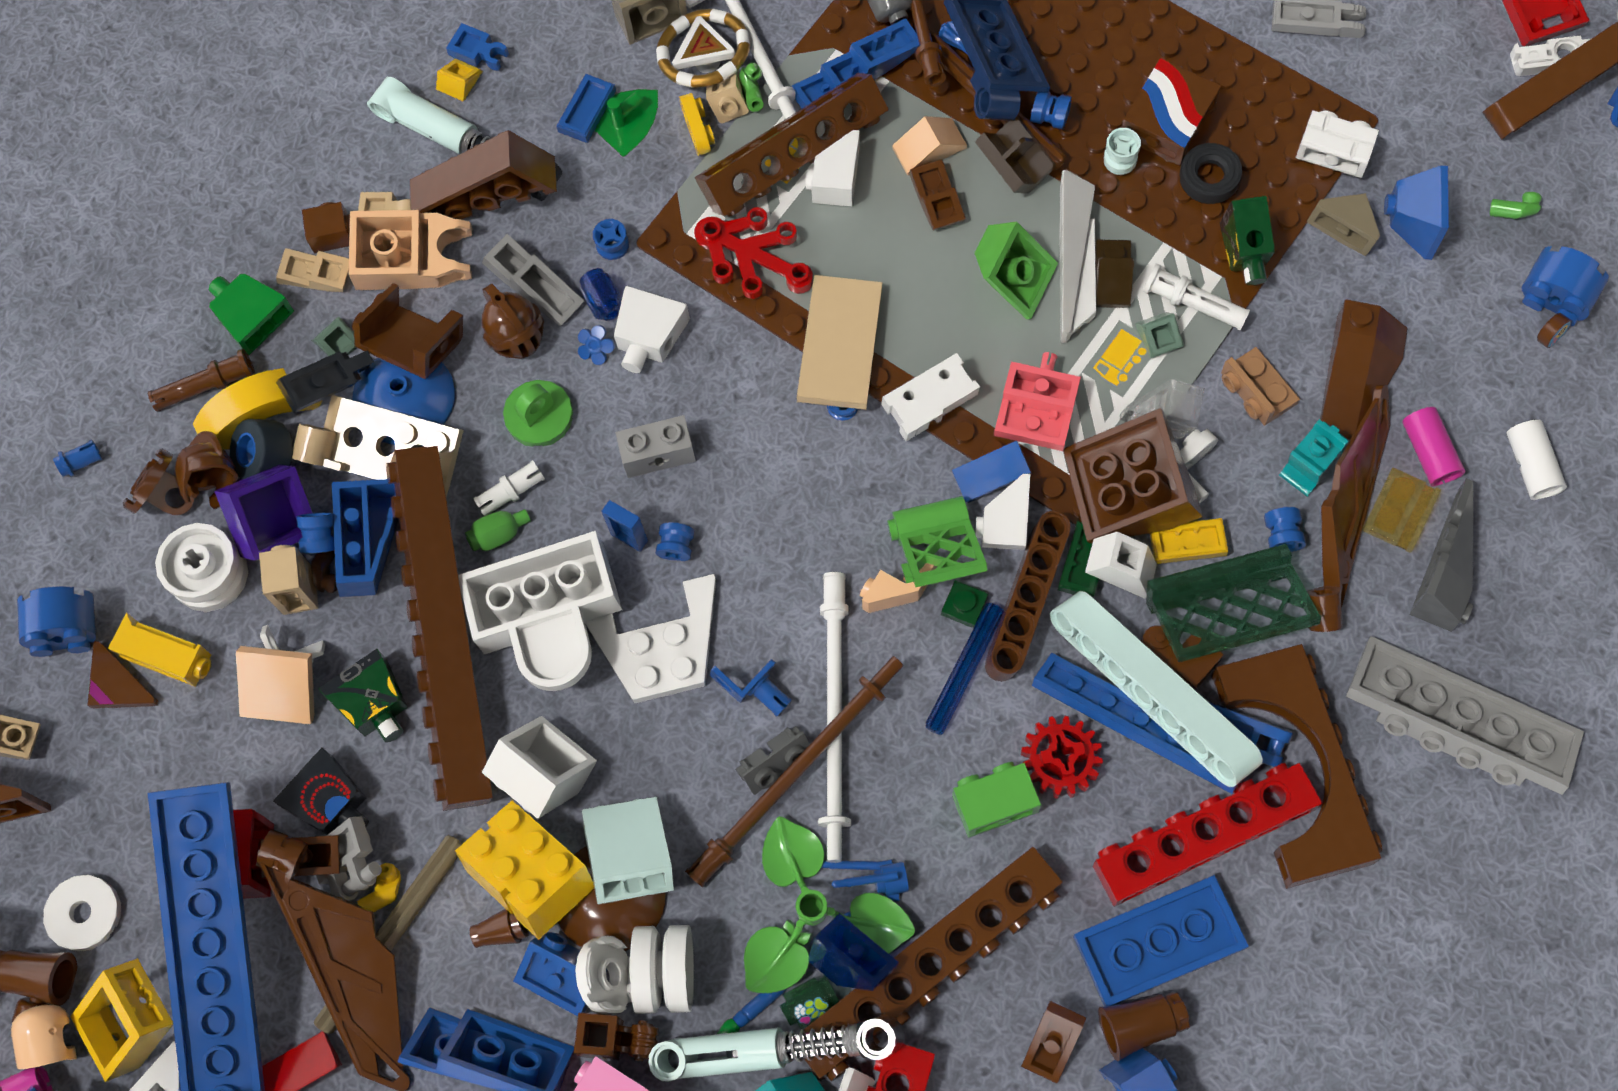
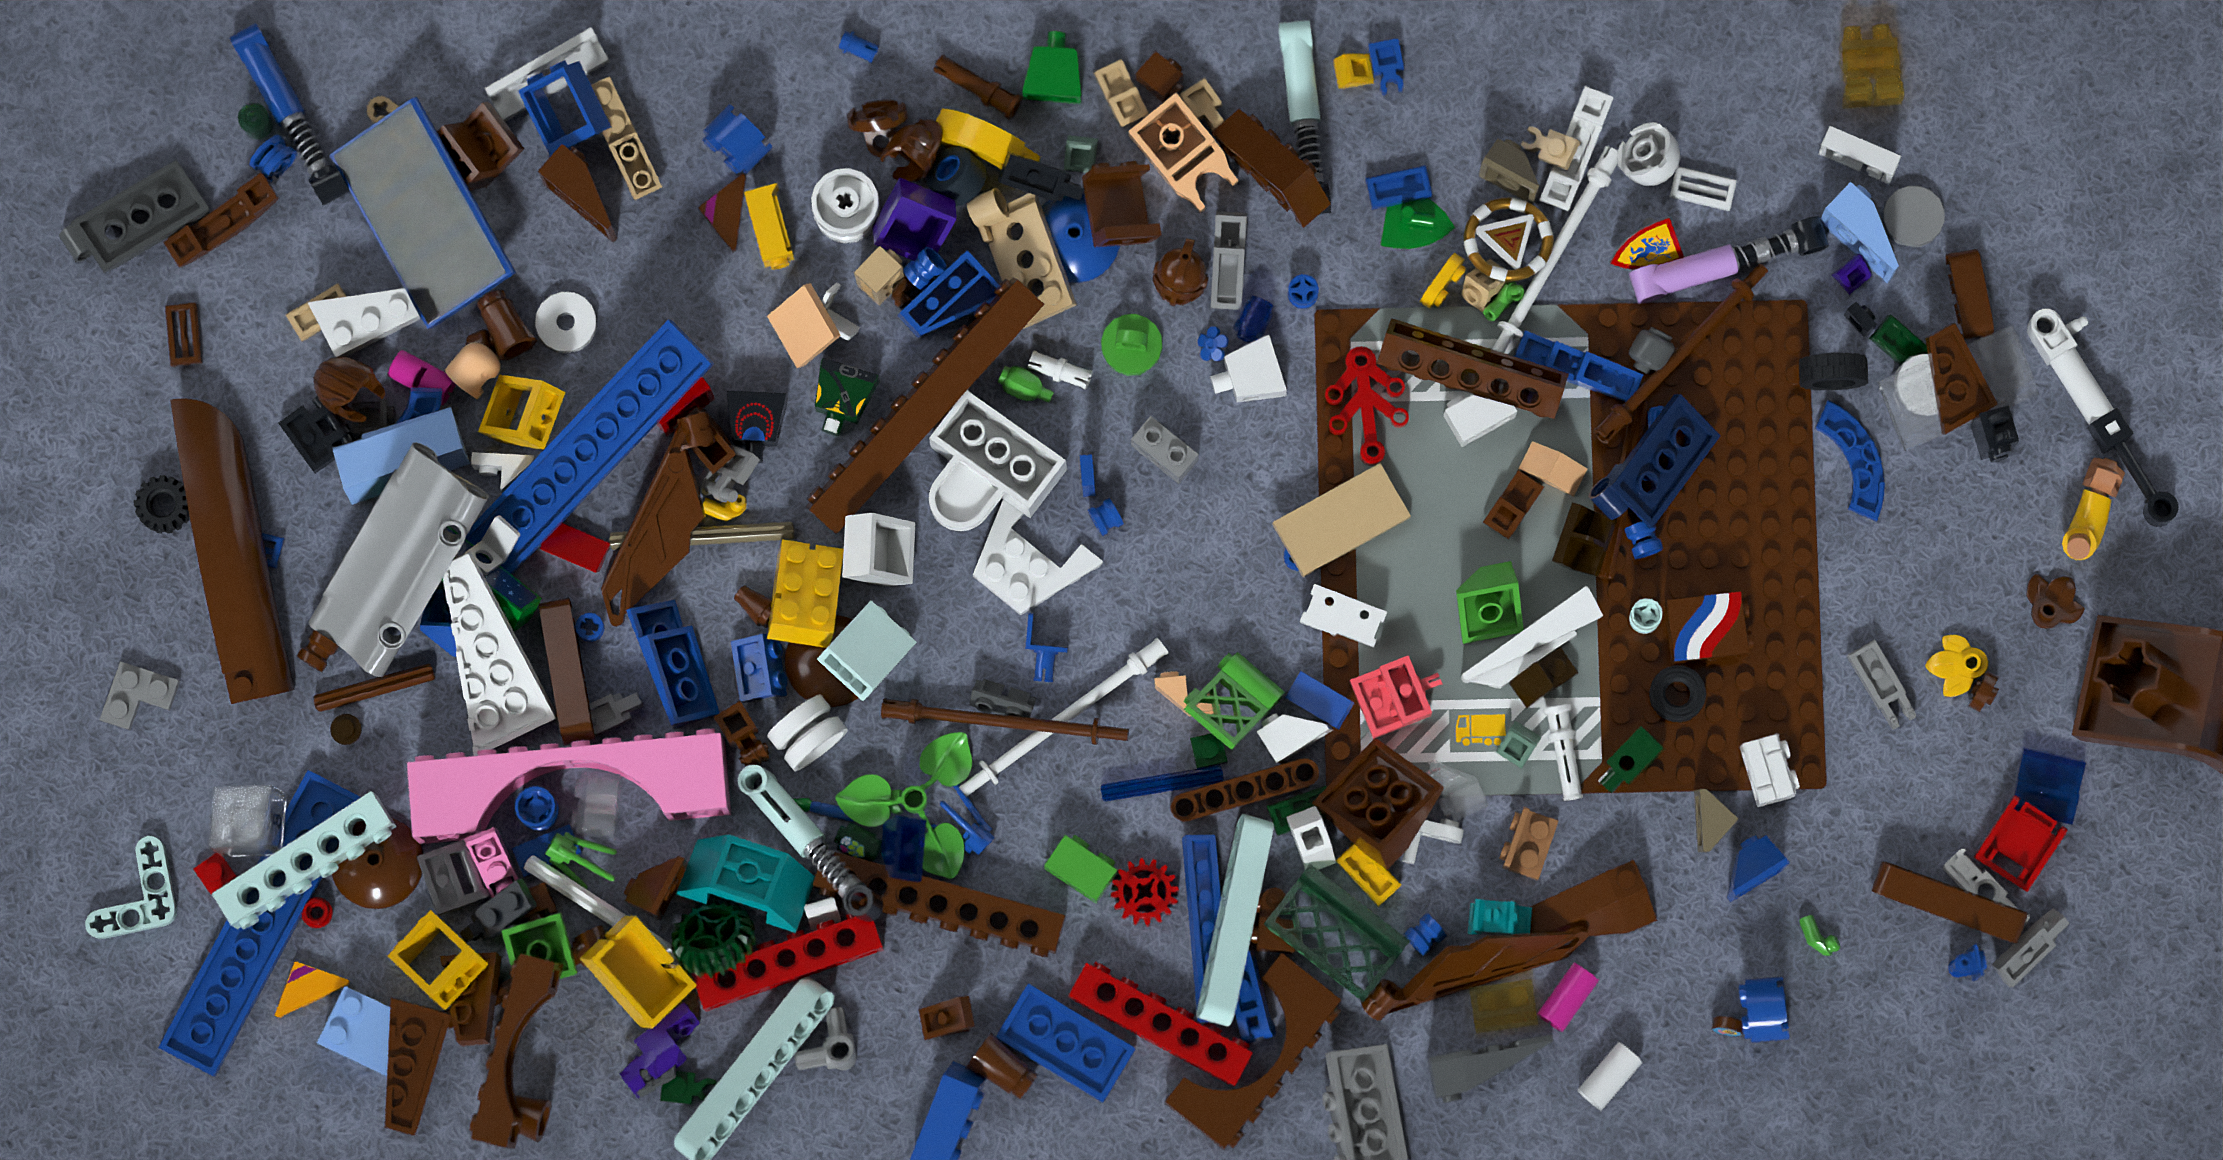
camera: 50 degrees right, 10 degrees up
(591, 966) = (764, 695): white tile -> none

